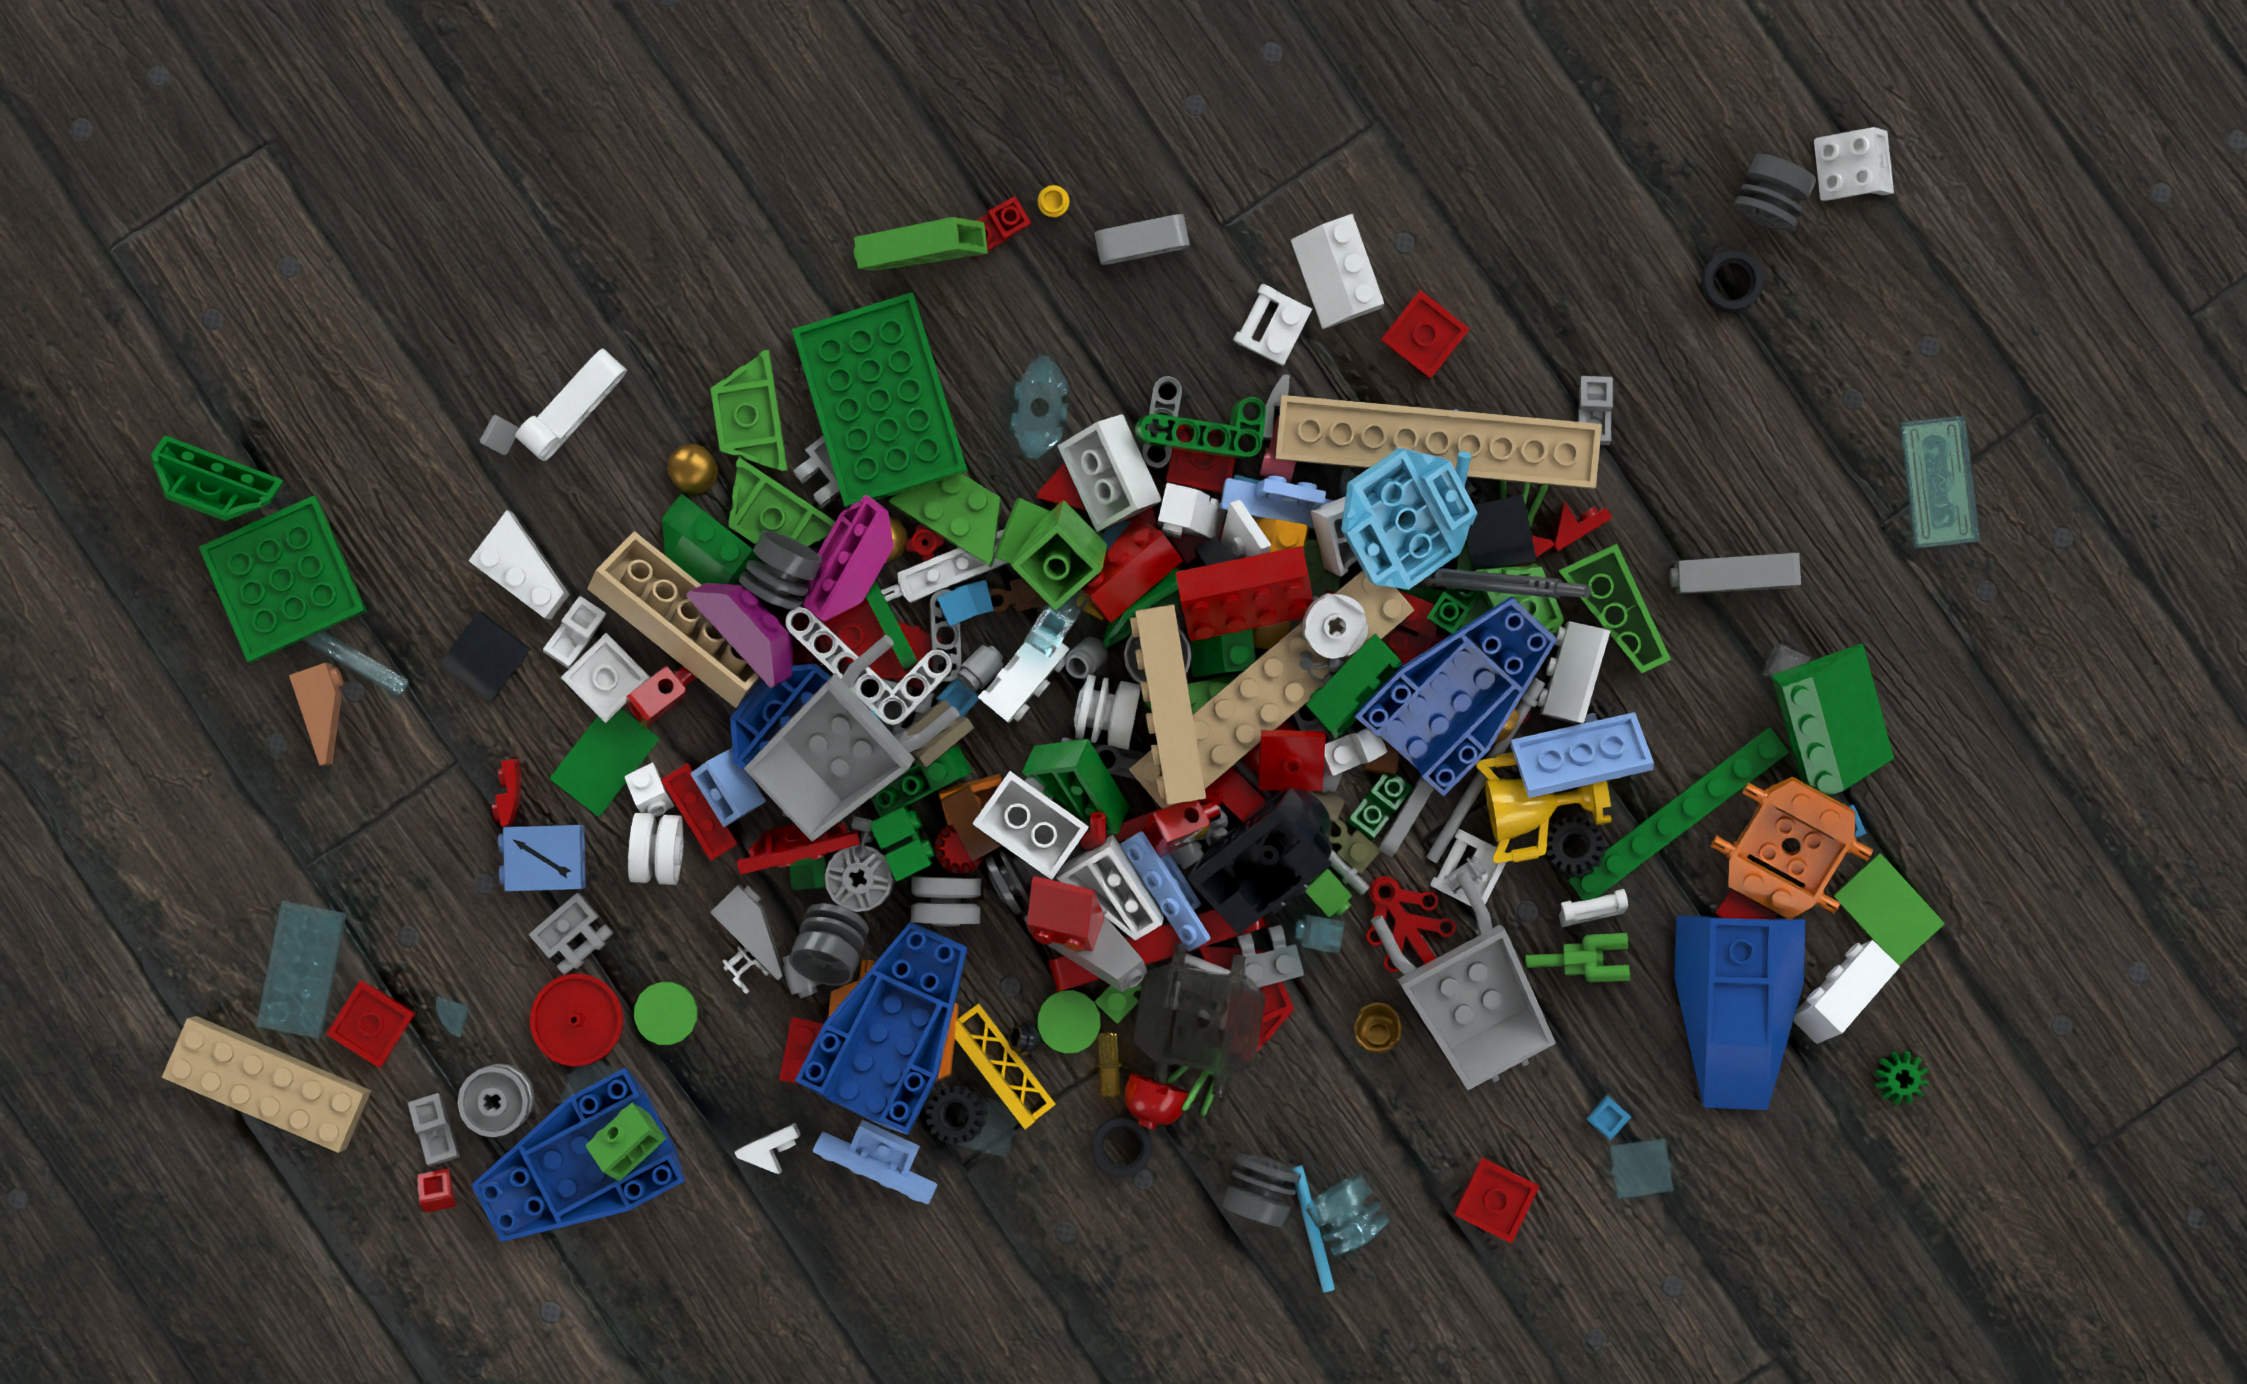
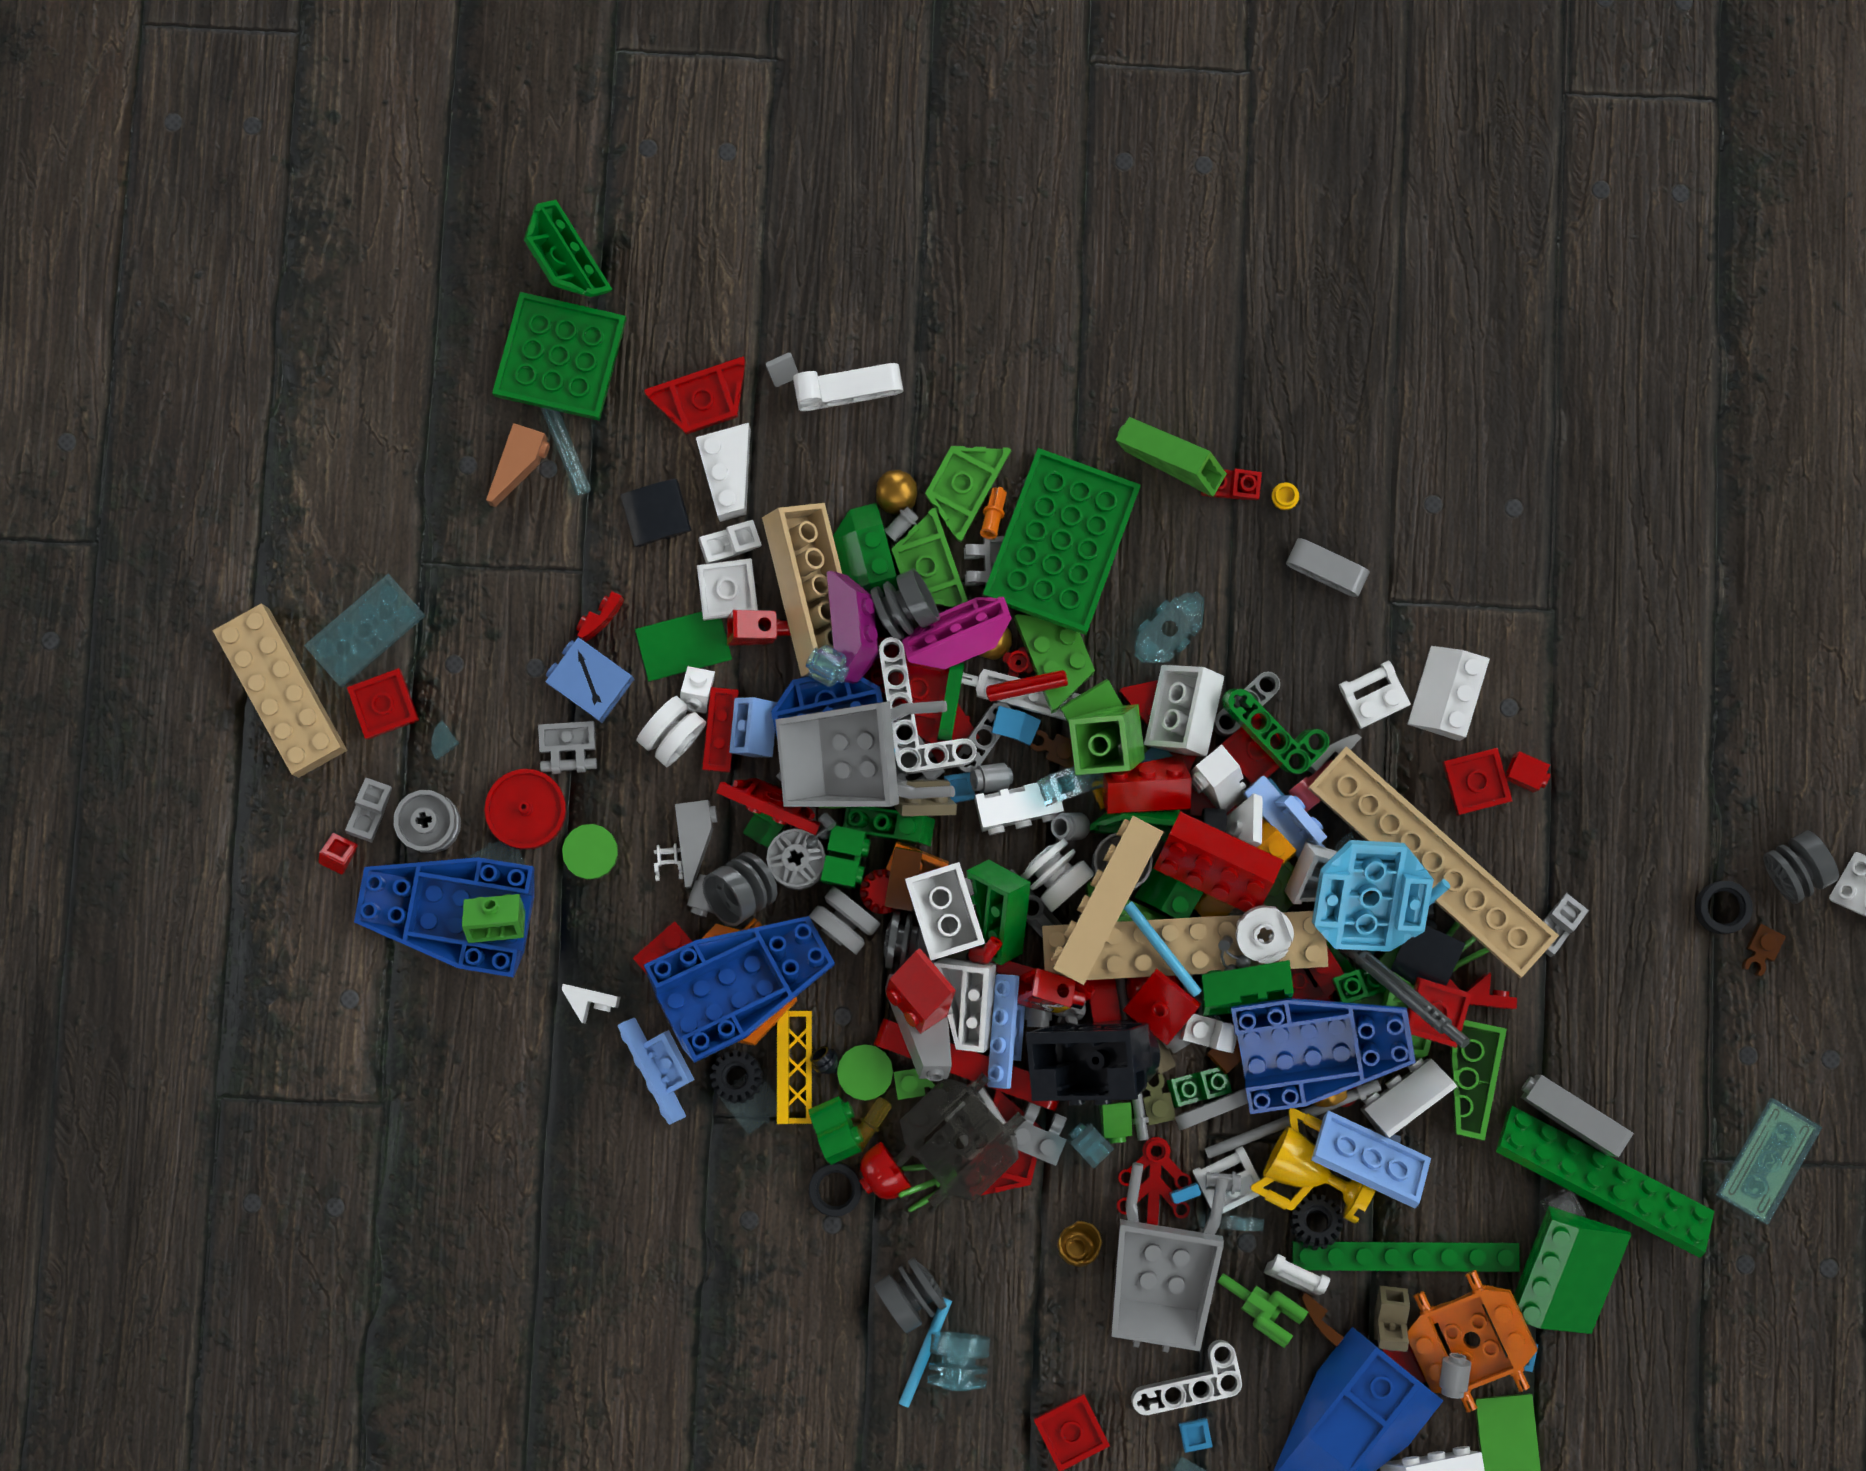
camera: 35 degrees right, 5 degrees down
(444, 516) = (701, 397): none -> red wing
(719, 495) = (901, 523): none -> light grey pin
(753, 683) = (827, 666): none -> clear light blue head
(797, 421) = (993, 513): none -> orange axle
(949, 559) = (1027, 685): none -> red axle
(1081, 1094) = (835, 1130): none -> green brick
(1253, 708) = (1162, 949): none -> medium azure bar
(1438, 911) = (1185, 1193): none -> dark azure tile
(1464, 291) = (1527, 772): none -> red brick
(1509, 899) = (1242, 1223): none -> clear light blue piece
(1543, 560) = (1448, 1000): none -> red plate
(1566, 1081) = (1185, 1385): none -> white beam
(1635, 928) = (1315, 1314): none -> reddish brown slope
(1706, 881) = (1391, 1318): none -> dark tan brick
(1794, 287) = (1765, 945): none -> reddish brown plate
(1798, 890) = (1455, 1375): none -> light grey brick
(1806, 613) = (1605, 1181): none -> green plate

